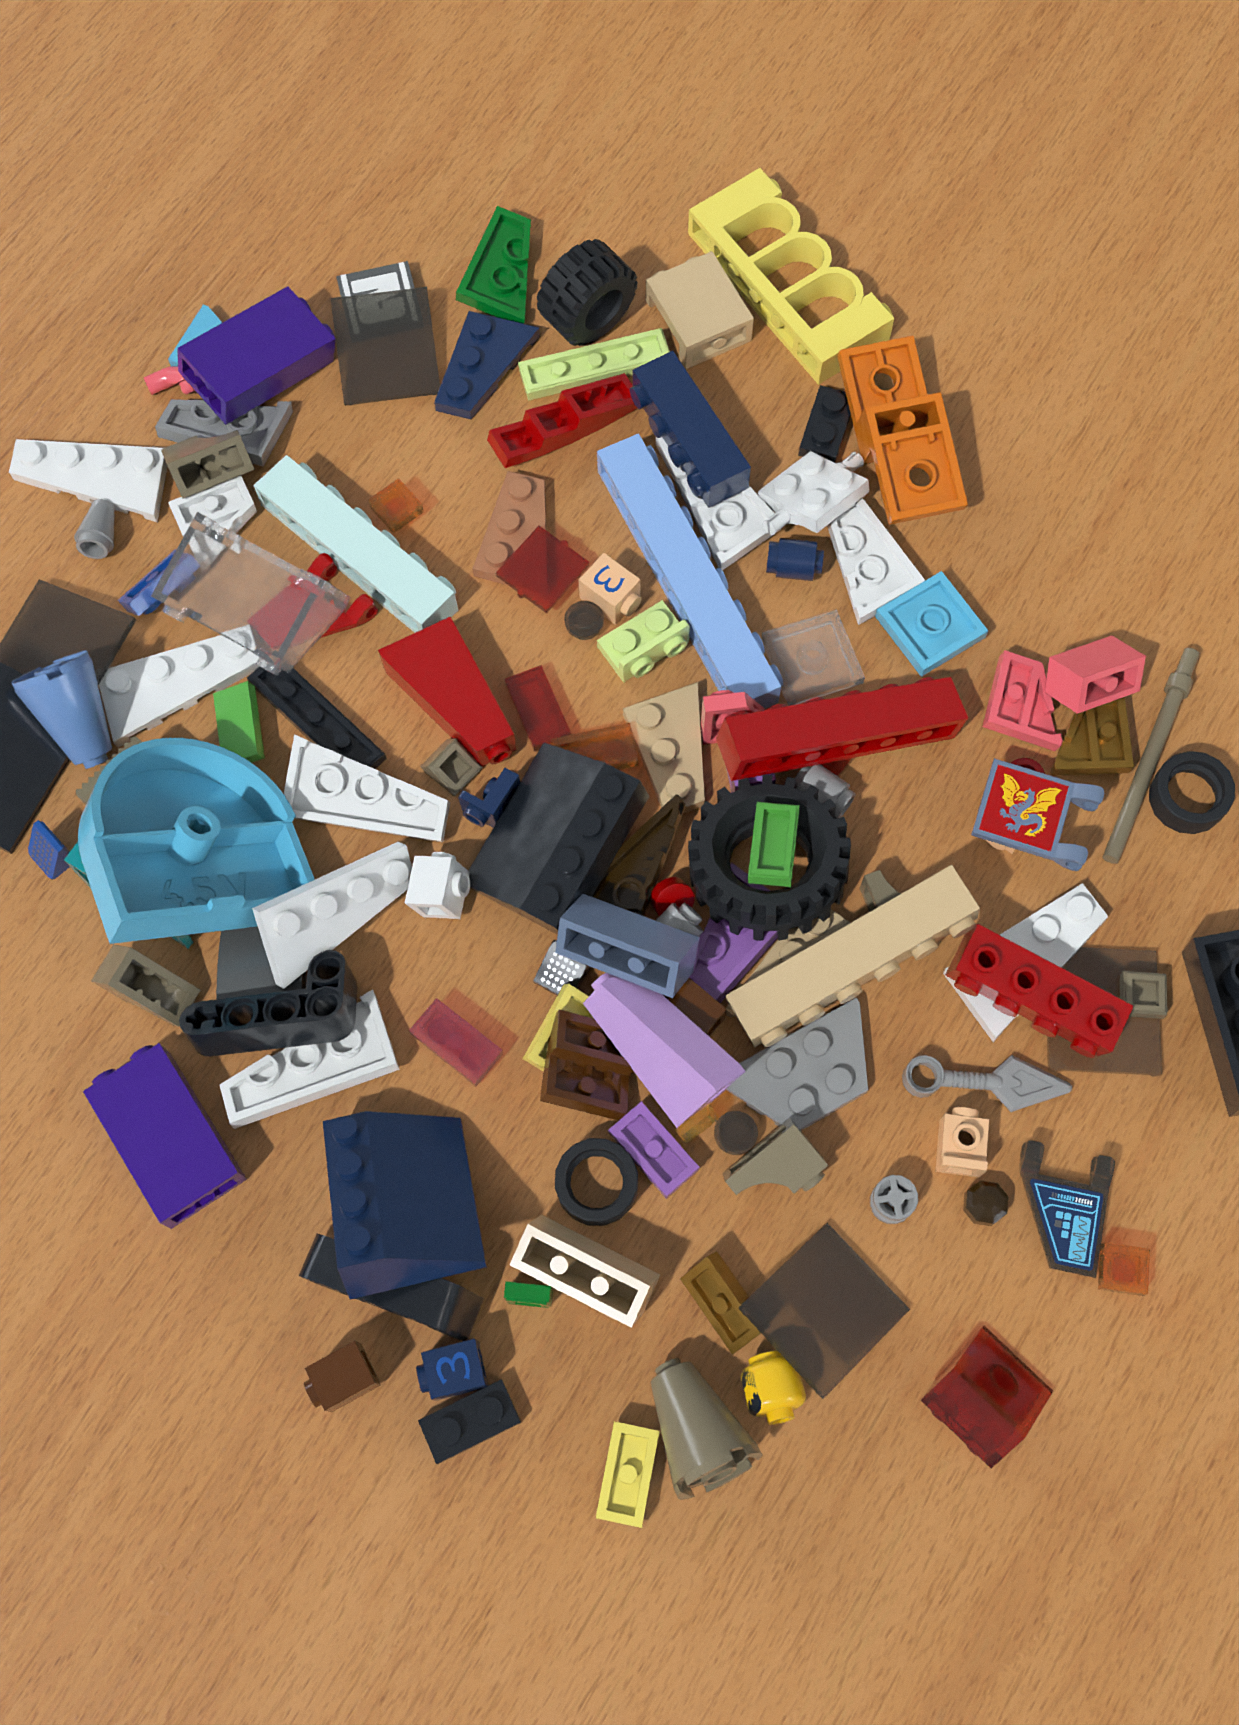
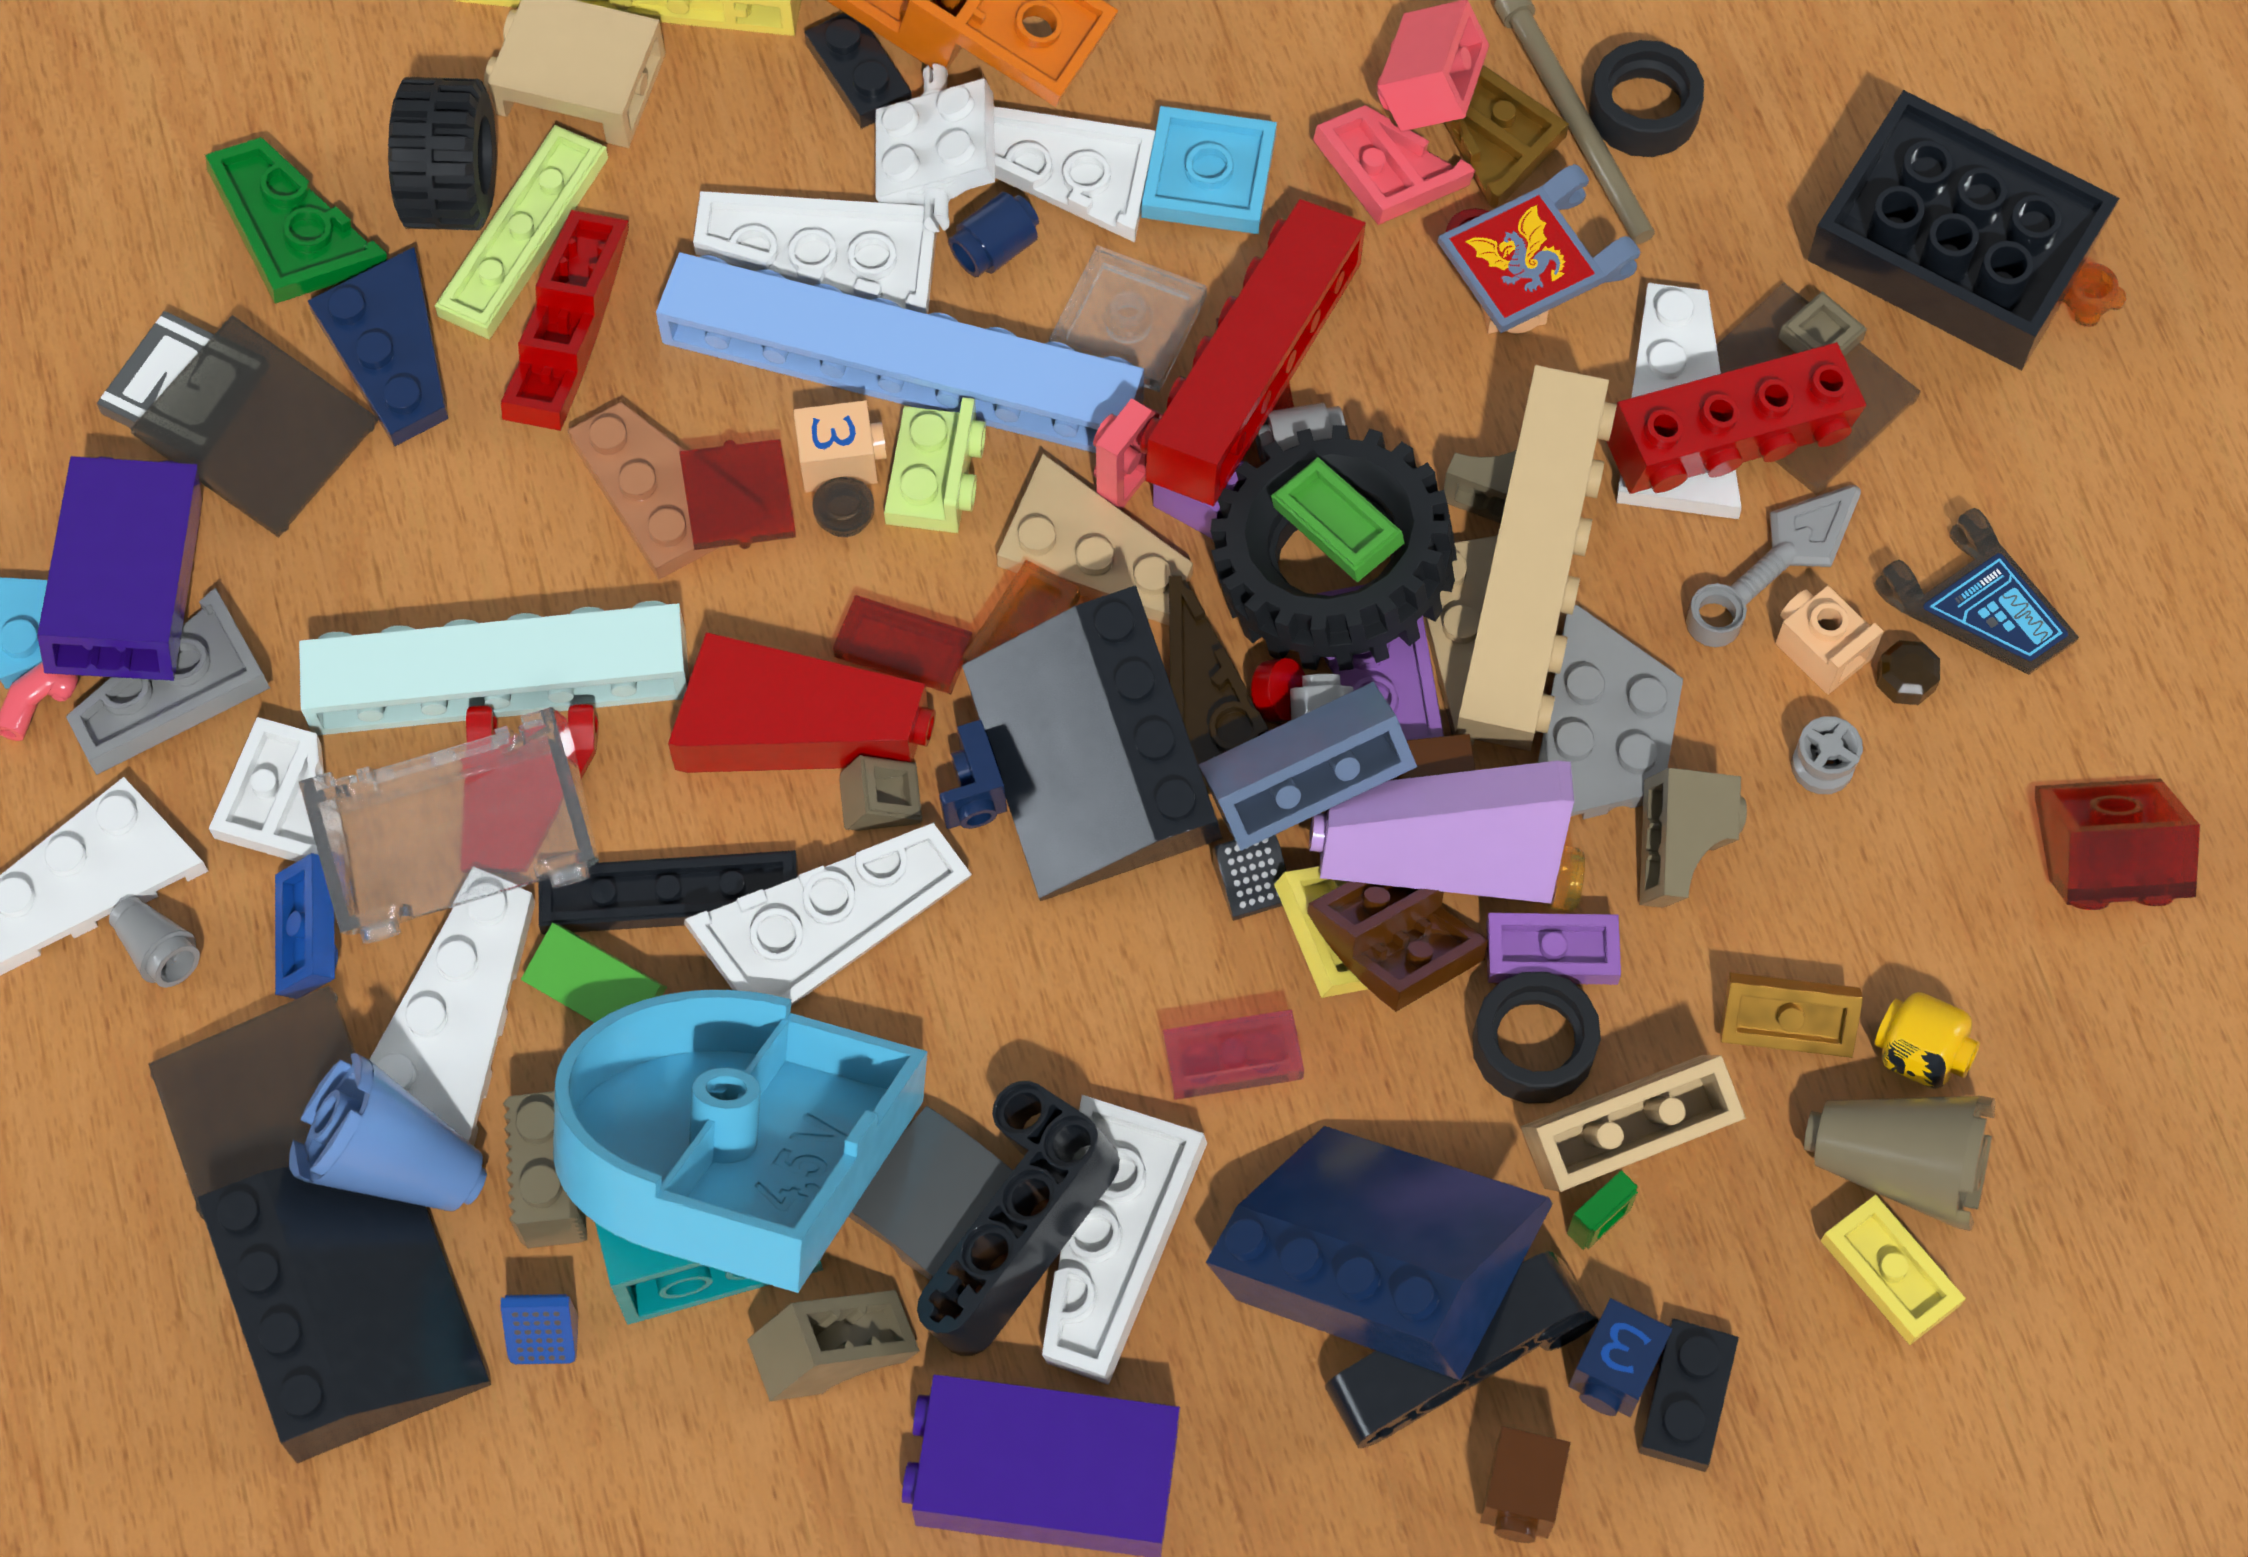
camera: 50 degrees left, 5 degrees down
(206, 462) = (203, 746): dark tan arch -> none
(329, 910) = (949, 1053): white wing -> none
(396, 505) = (484, 584): clear orange plate -> none
(437, 886) = (1028, 918): white brick -> none
(690, 429) = (732, 195): dark blue brick -> none
(735, 1133) = (1610, 850): clear smoke plate -> none
(824, 1310) = (1887, 919): clear smoke piece -> none
(1124, 1269) = (2095, 601): clear orange plate -> none

